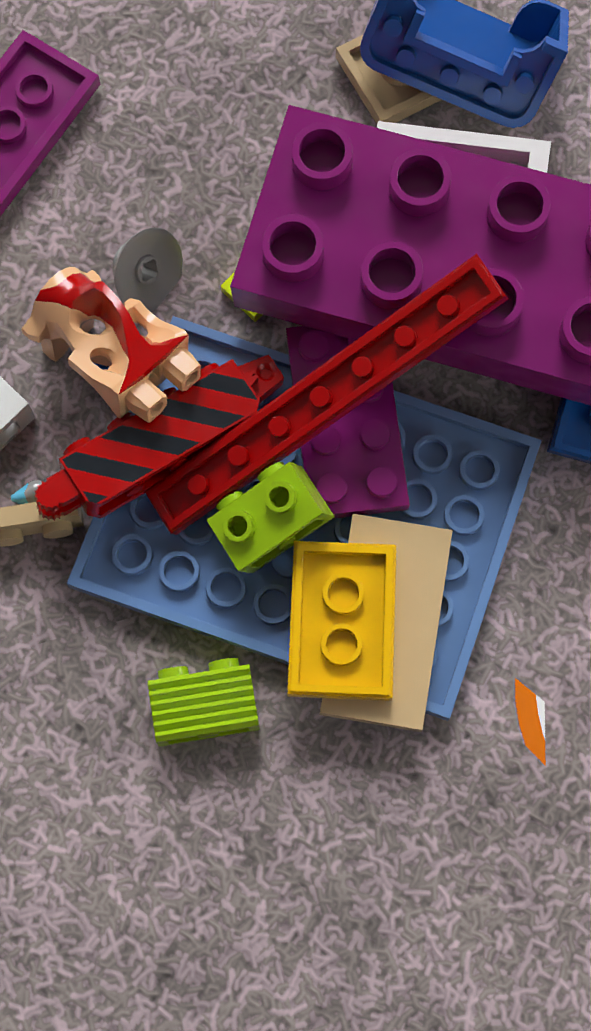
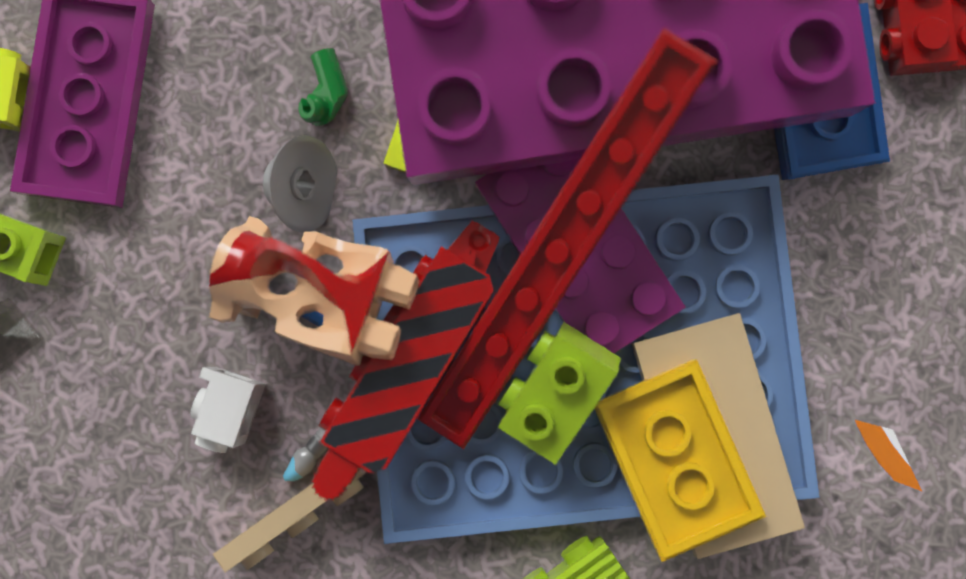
camera: 20 degrees left, 10 degrees up
(206, 213) = (330, 92): none -> green arm

